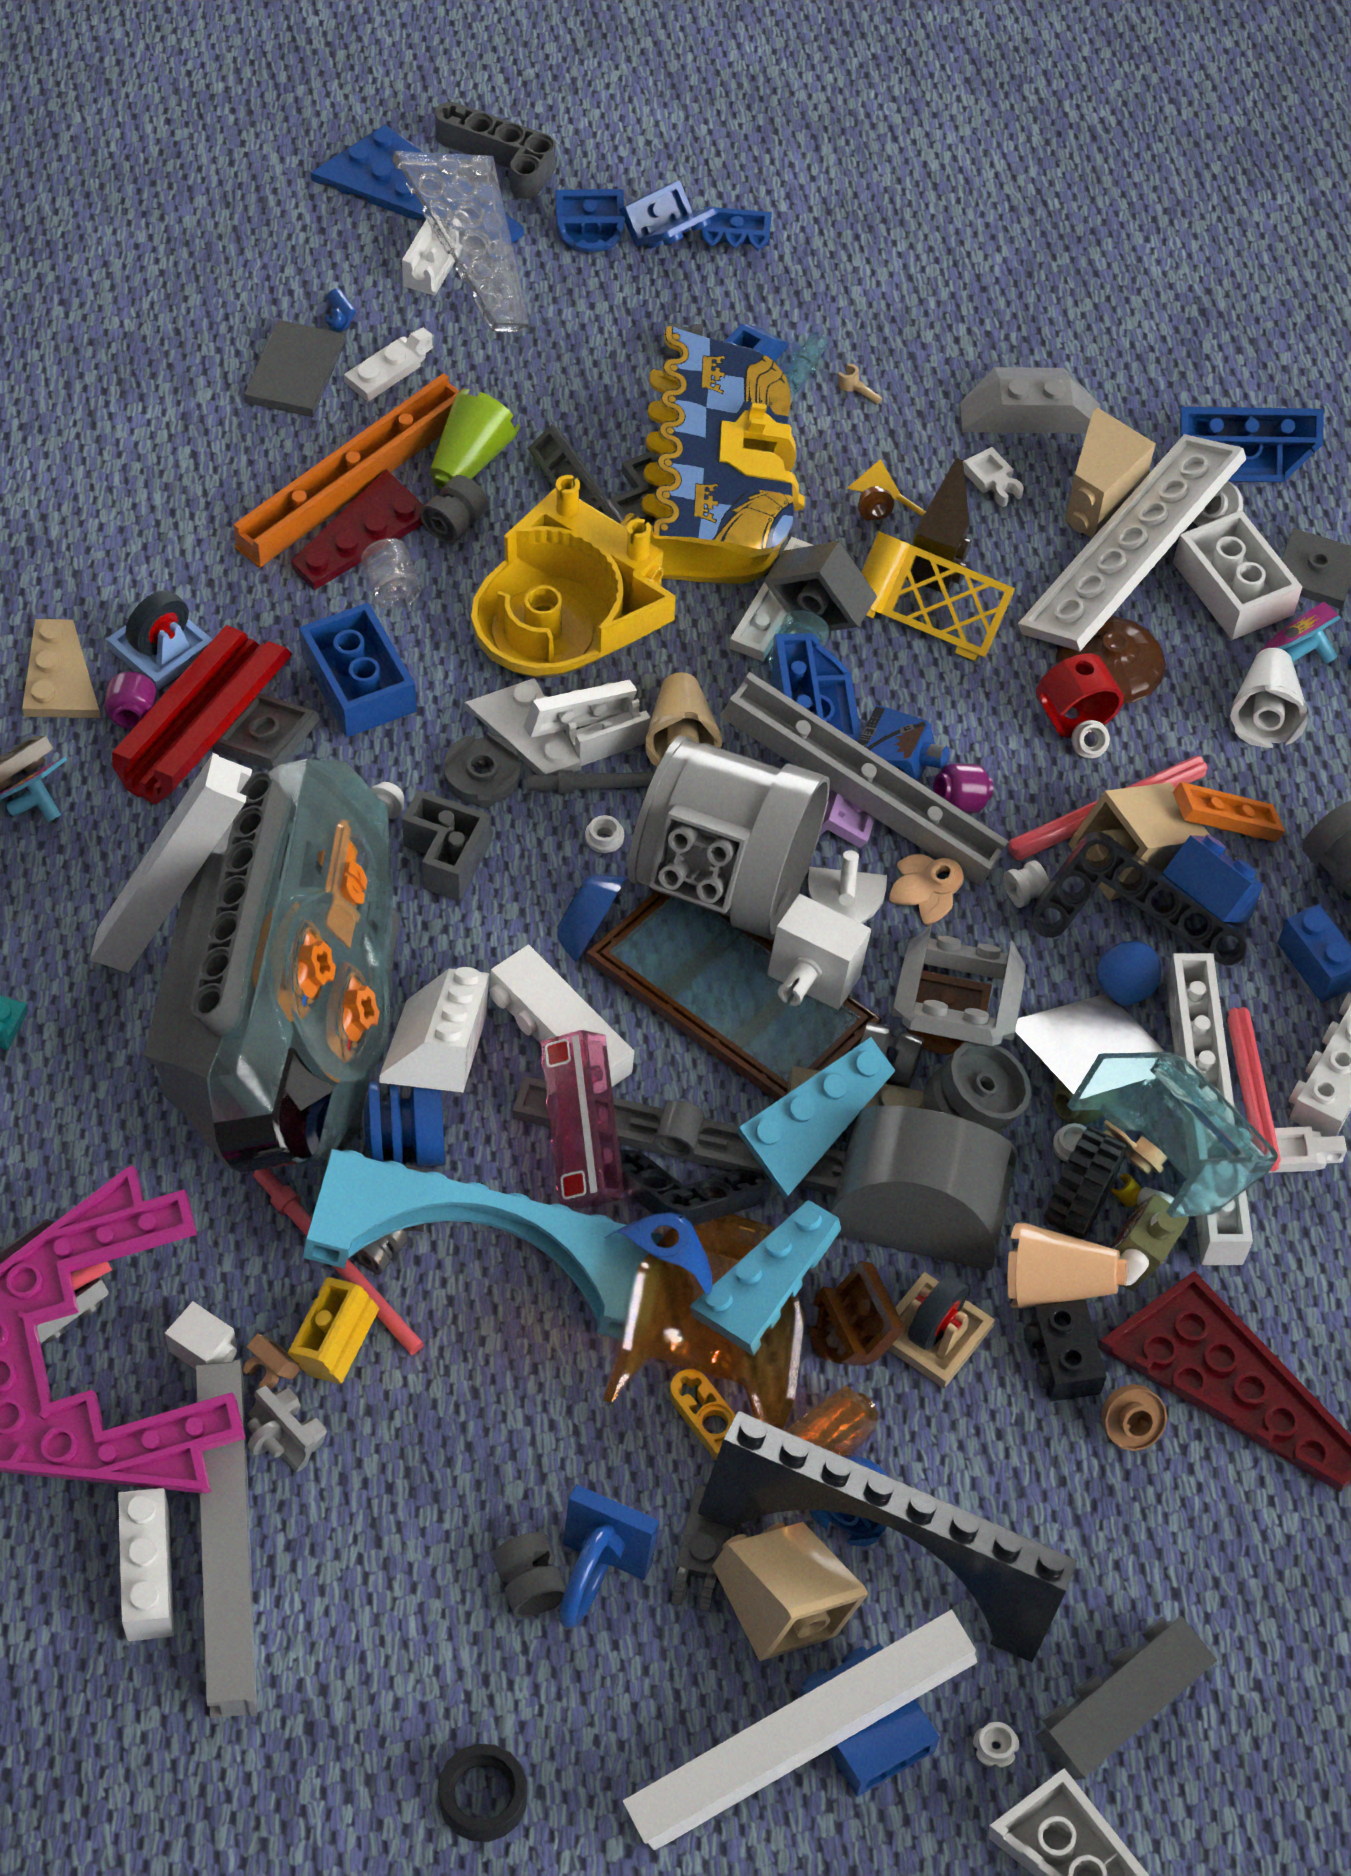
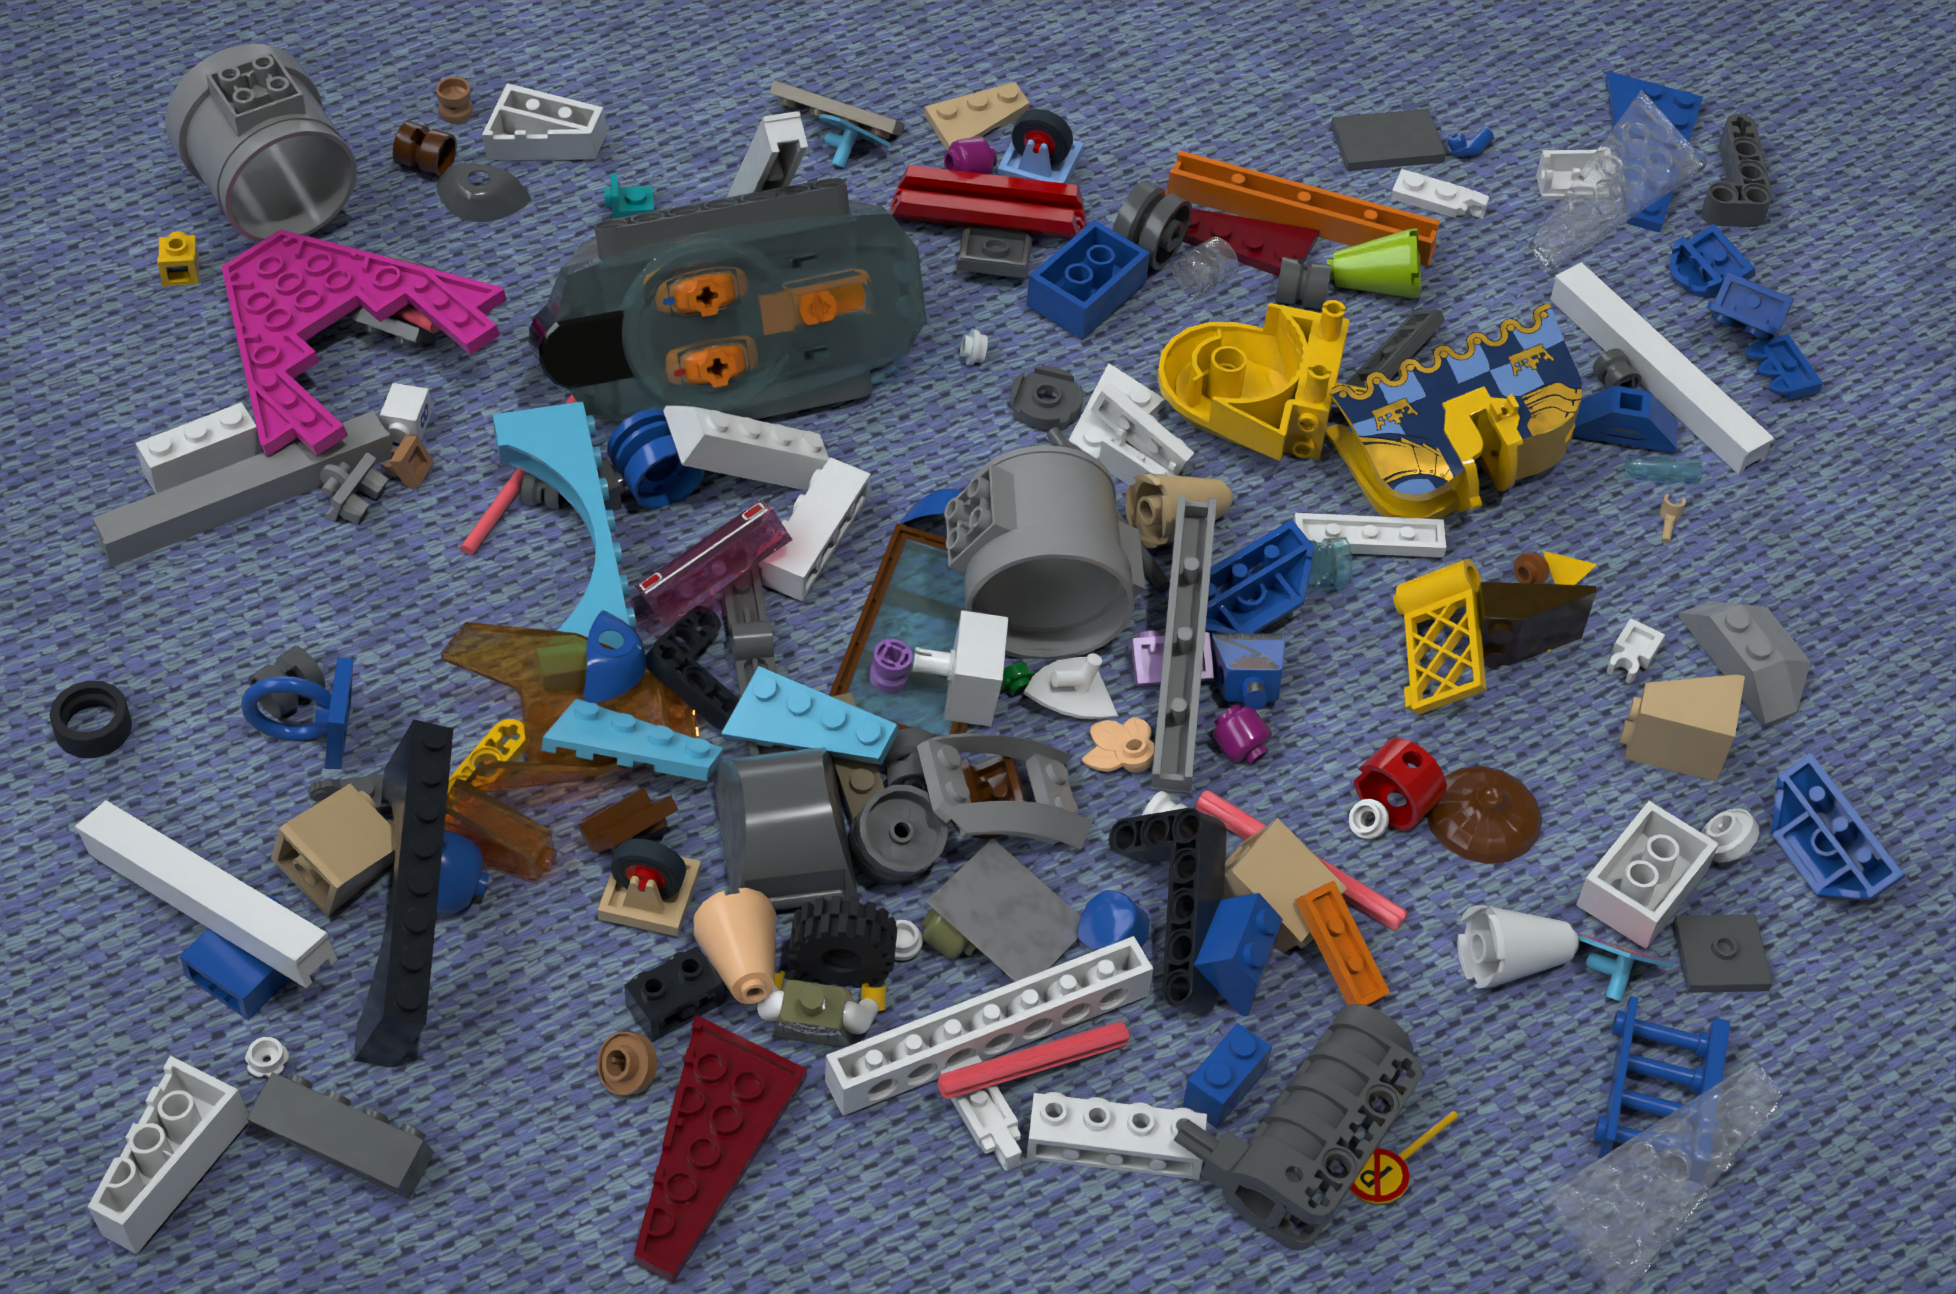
camera: 65 degrees right, 5 degrees down
(322, 583) = (1154, 221): none -> dark grey wheel
(333, 1330) = (446, 484): yellow brick -> none
(450, 837) = (947, 400): dark grey brick -> none
(714, 304) = (1662, 368): none -> white tile
(774, 1022) = (890, 665): none -> medium lavender wheel
(822, 582) = (1381, 544): dark grey brick -> none
(1131, 542) = (1624, 773): white plate -> none
(1142, 1153) = (898, 976): light nougat plate -> none
(1184, 1120) = (961, 975): clear light blue windscreen -> none

